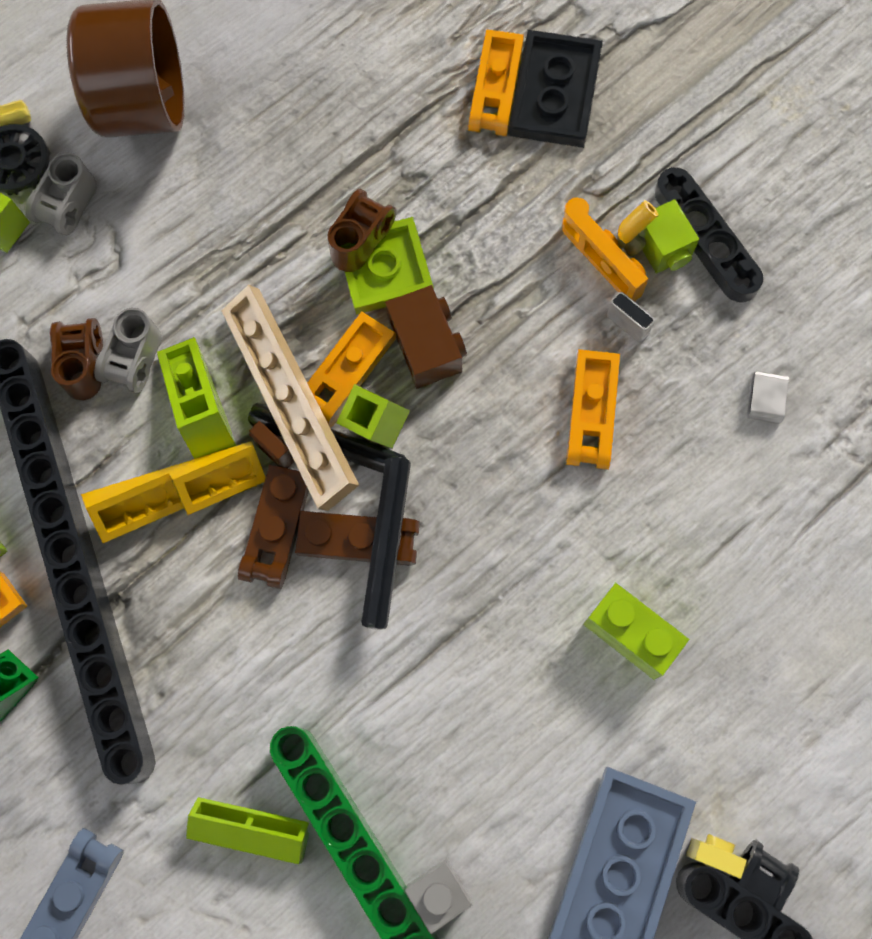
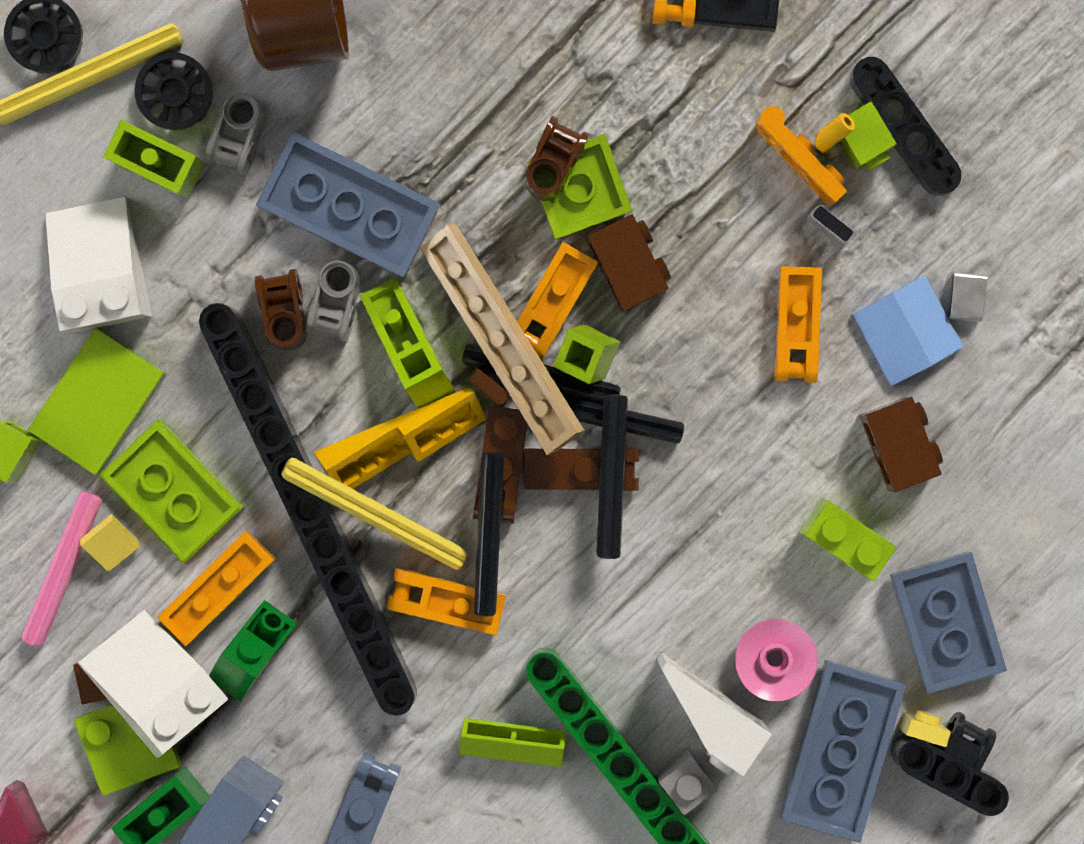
camera: 15 degrees left, 15 degrees up
(131, 560) = (374, 513): none -> light yellow axle
(158, 266) = (348, 204): none -> sand blue plate
(200, 666) = (442, 601): none -> light orange plate
(248, 593) = (488, 534): none -> black axle
(418, 494) = (637, 422): none -> black axle
(483, 830) = (725, 728): none -> white slope
(575, 760) = (790, 675): none -> bright pink dish
(697, 535) = (902, 444): none -> reddish brown brick
(705, 425) = (907, 331): none -> light blue slope
(745, 736) = (948, 622): none -> sand blue plate

